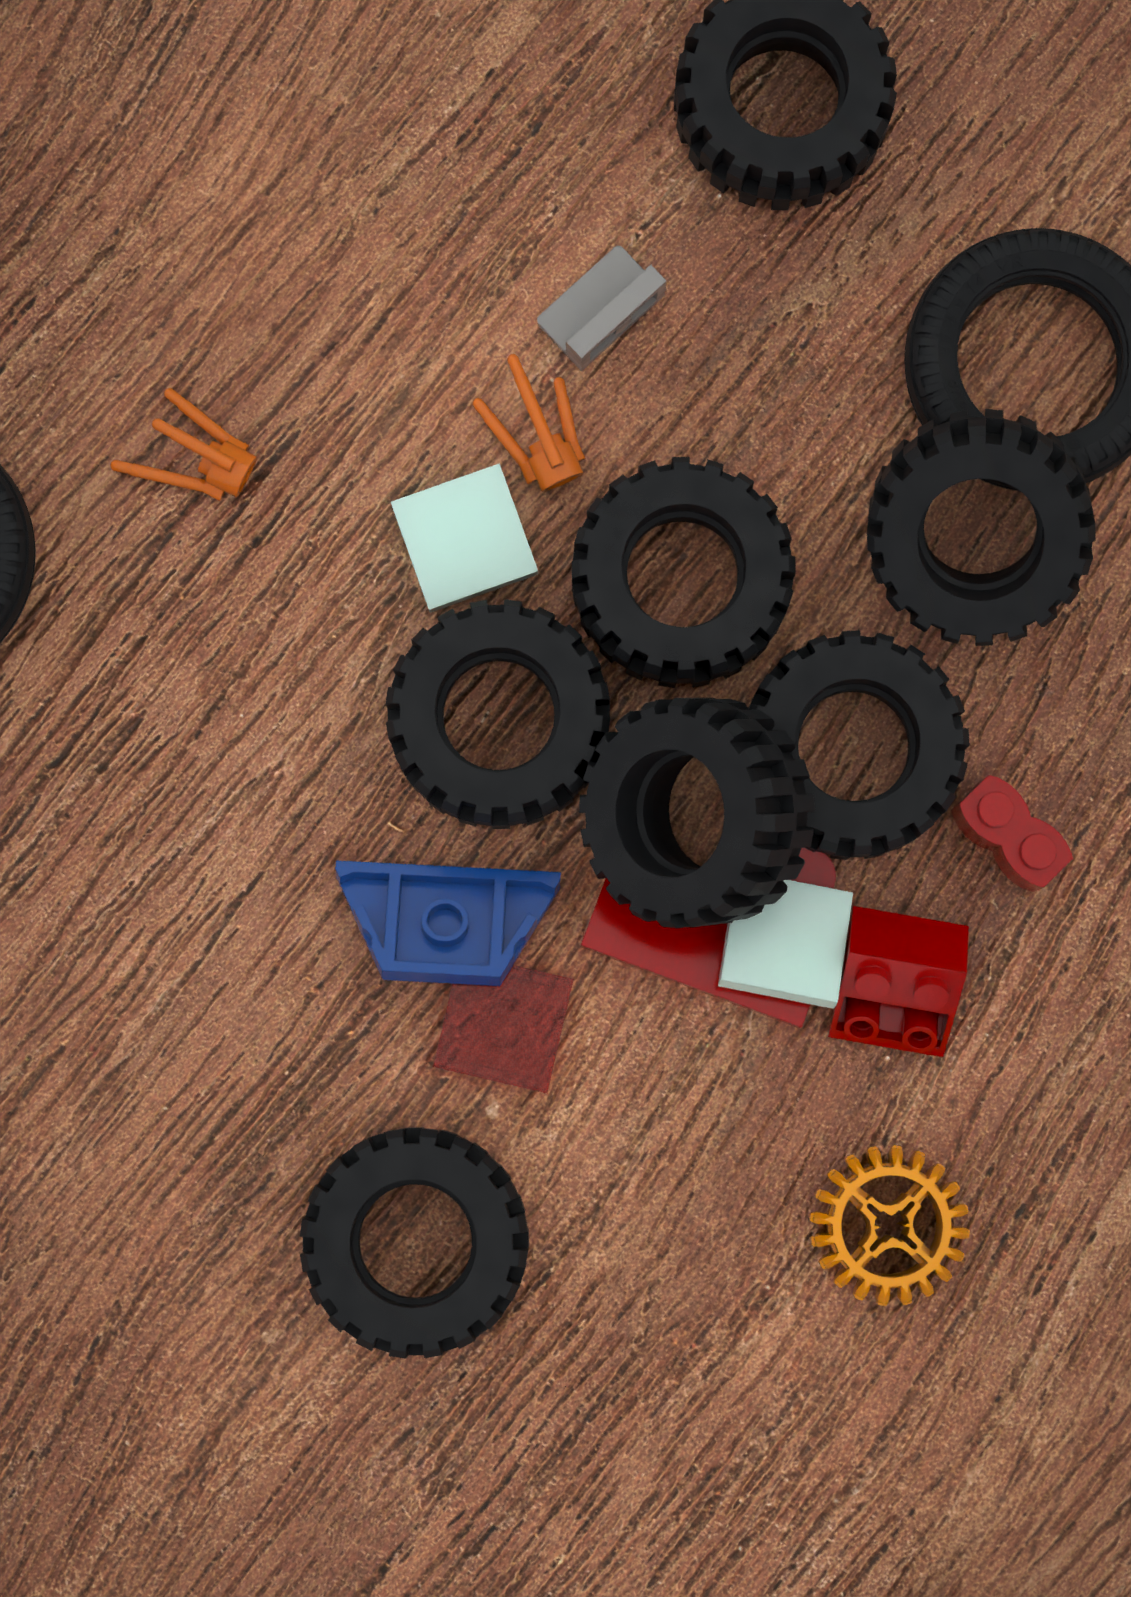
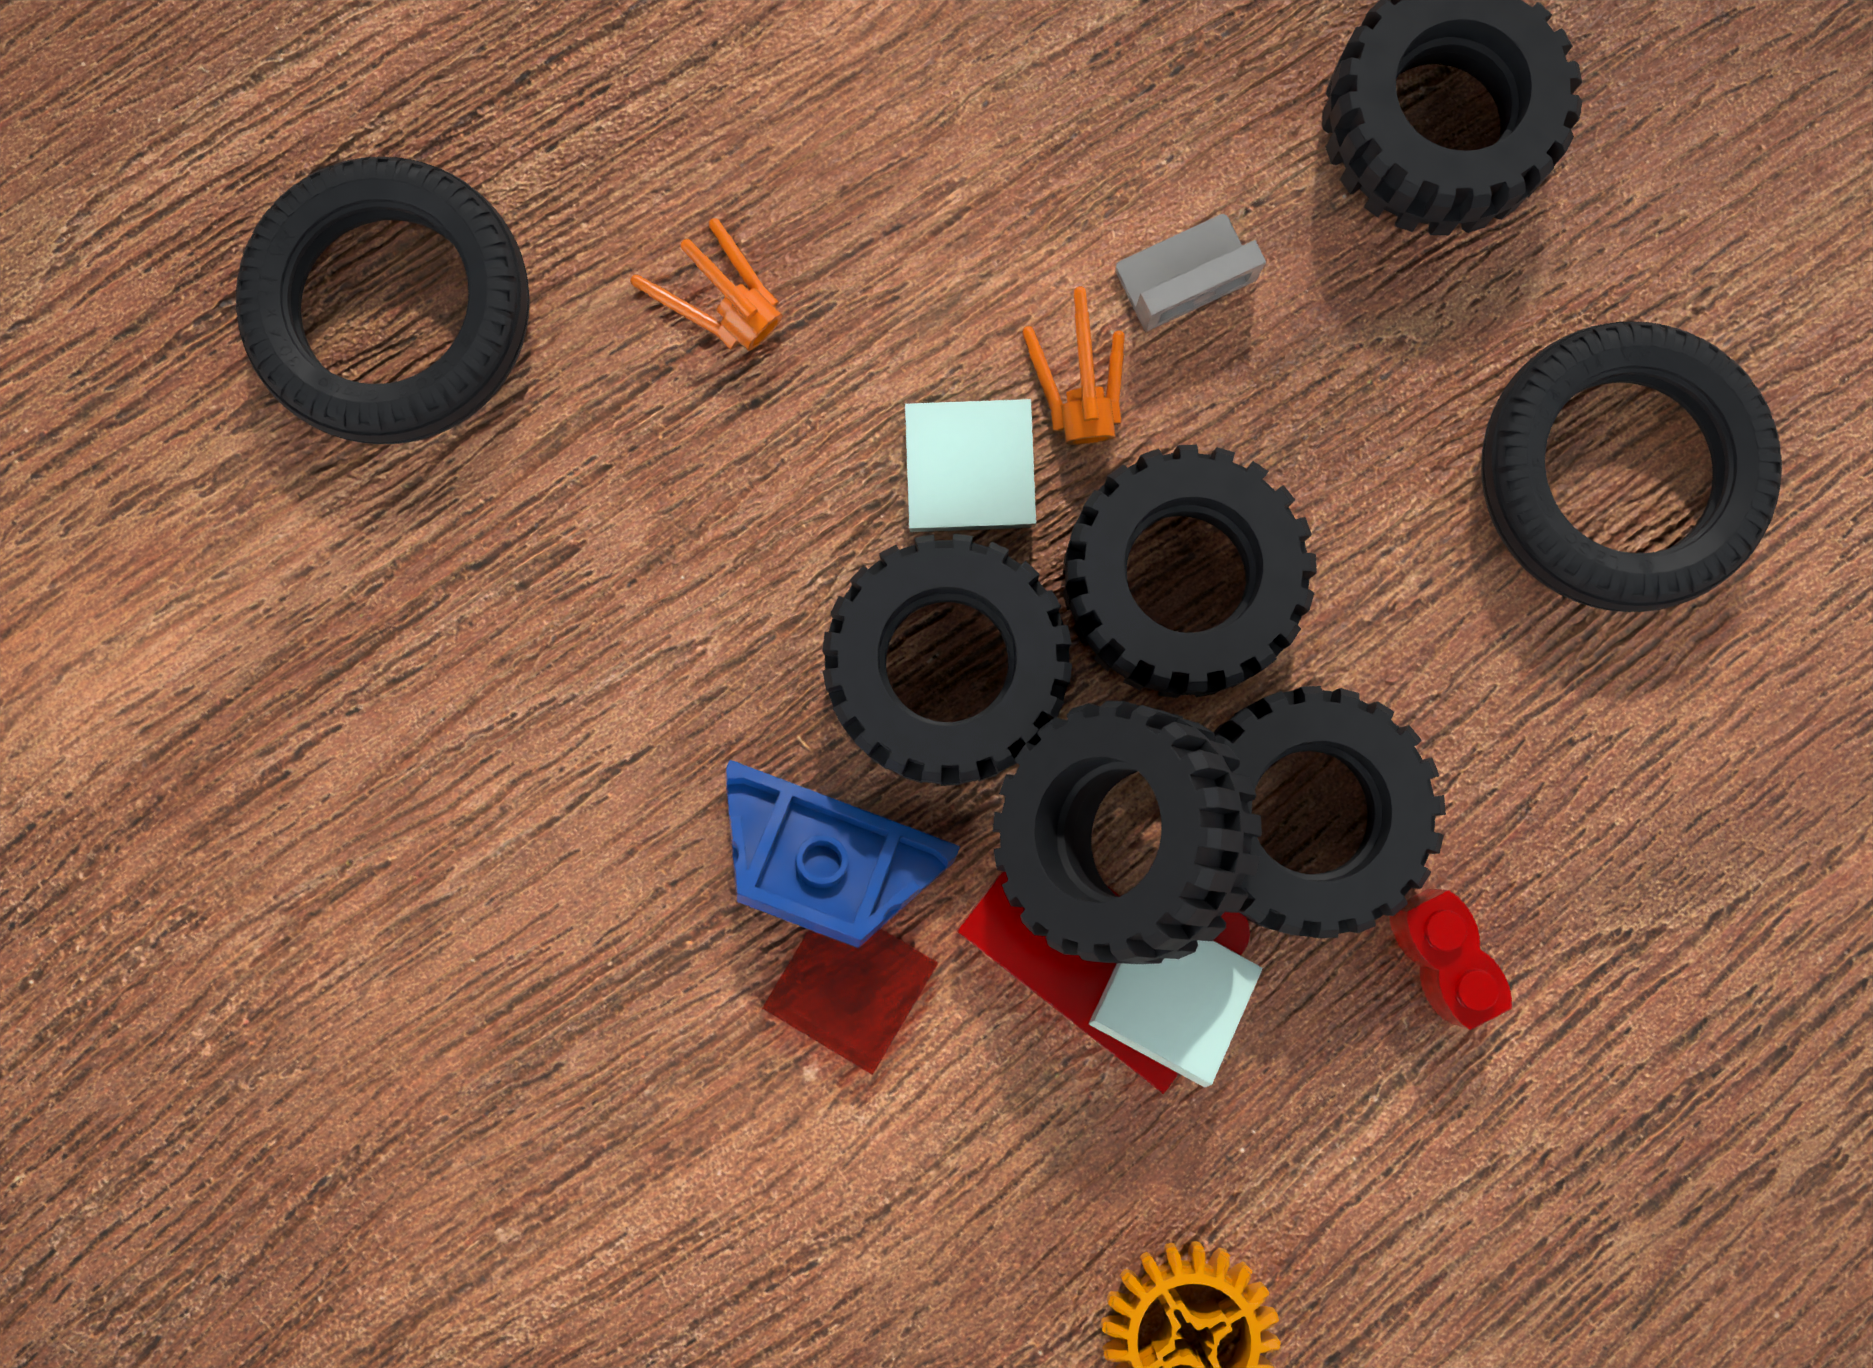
camera: 20 degrees right, 0 degrees up
(400, 1322) = (628, 1262): black tyre -> none
(900, 981) = (1285, 1077): red slope -> none
(990, 601) = (1544, 703): black tyre -> none

